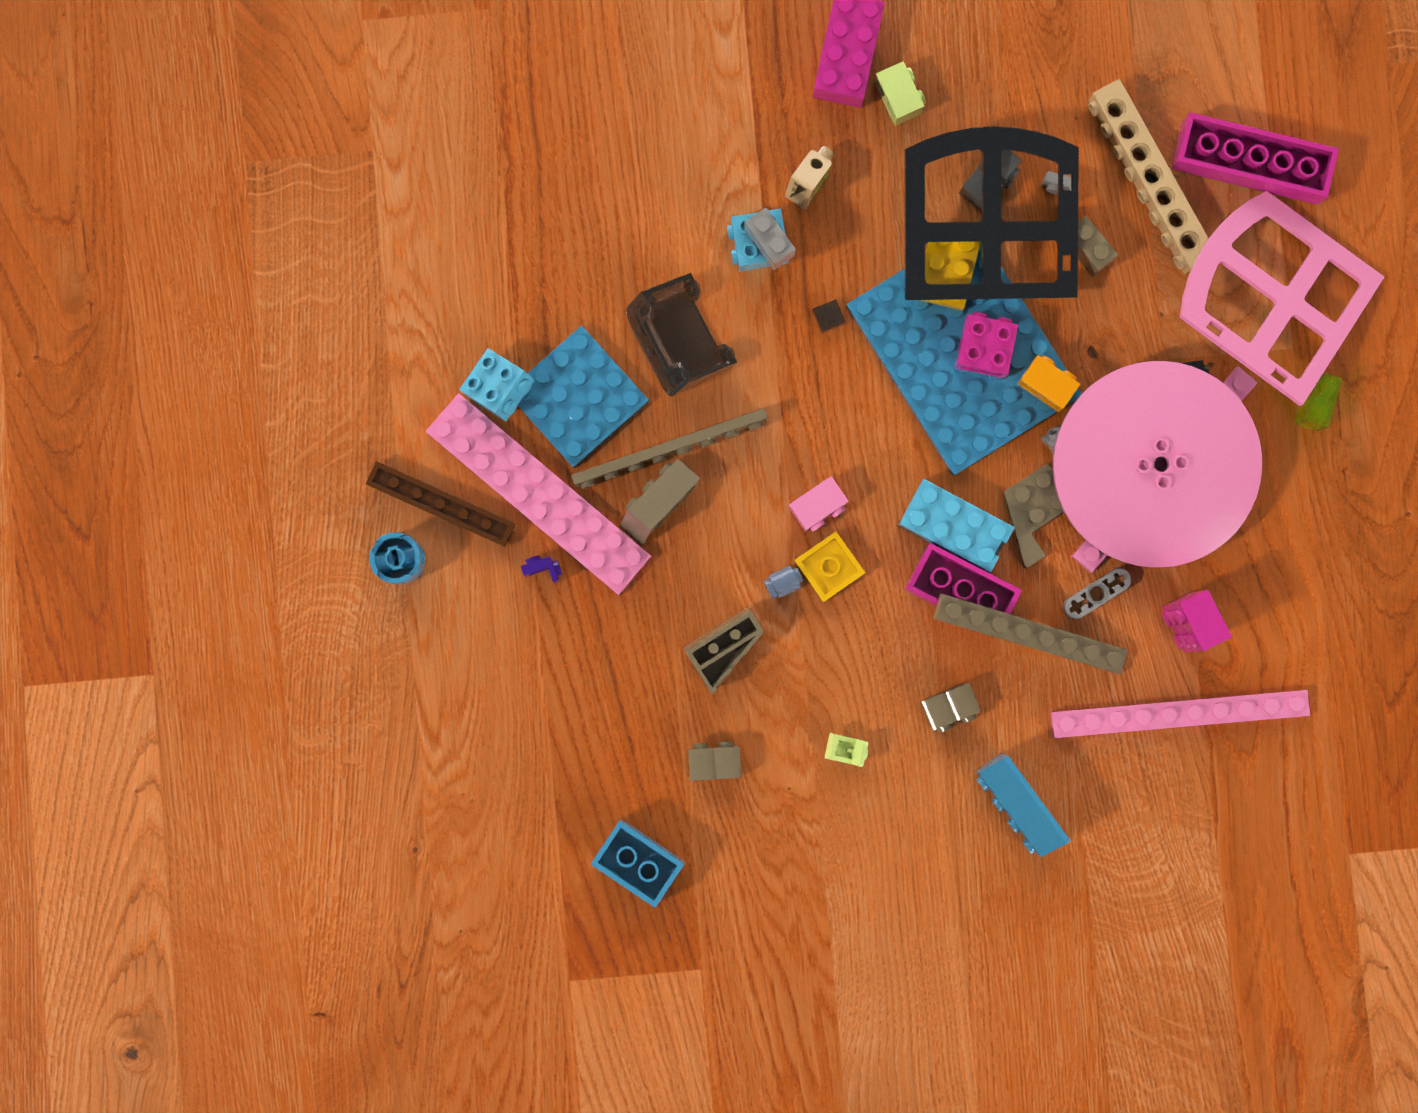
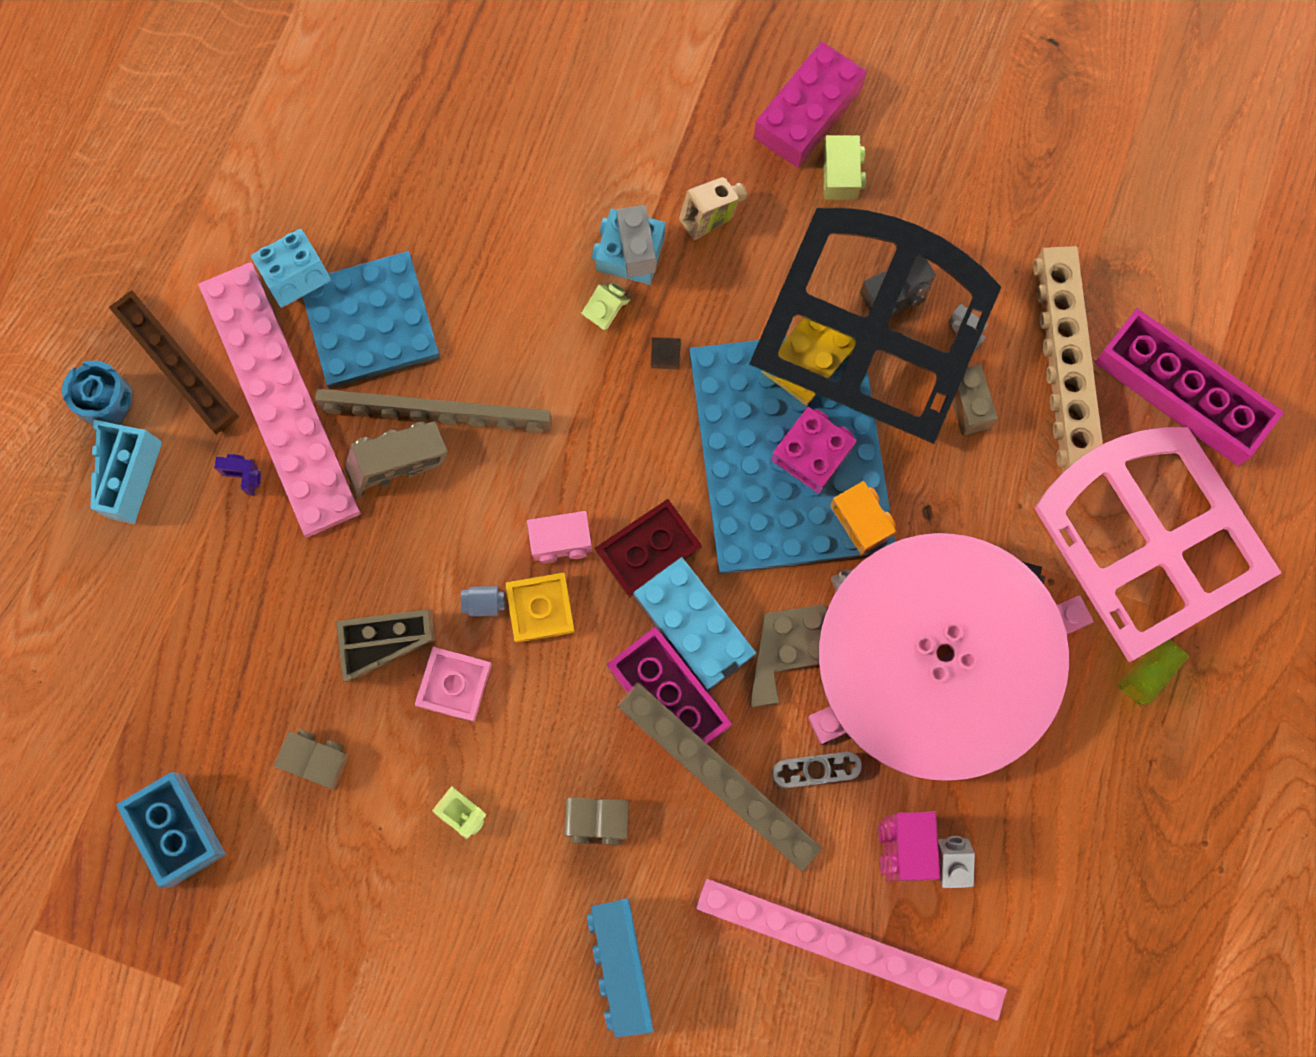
camera: 20 degrees right, 10 degrees down
(450, 609) = (122, 470): none -> medium azure wedge
(676, 335) = (500, 300): clear smoke windscreen -> none
(762, 298) = (605, 304): none -> yellowish green bracket
(792, 656) = (453, 684): none -> bright pink plate
(890, 481) = (647, 547): none -> dark red plate
(1233, 613) = (956, 862): none -> light grey bracket

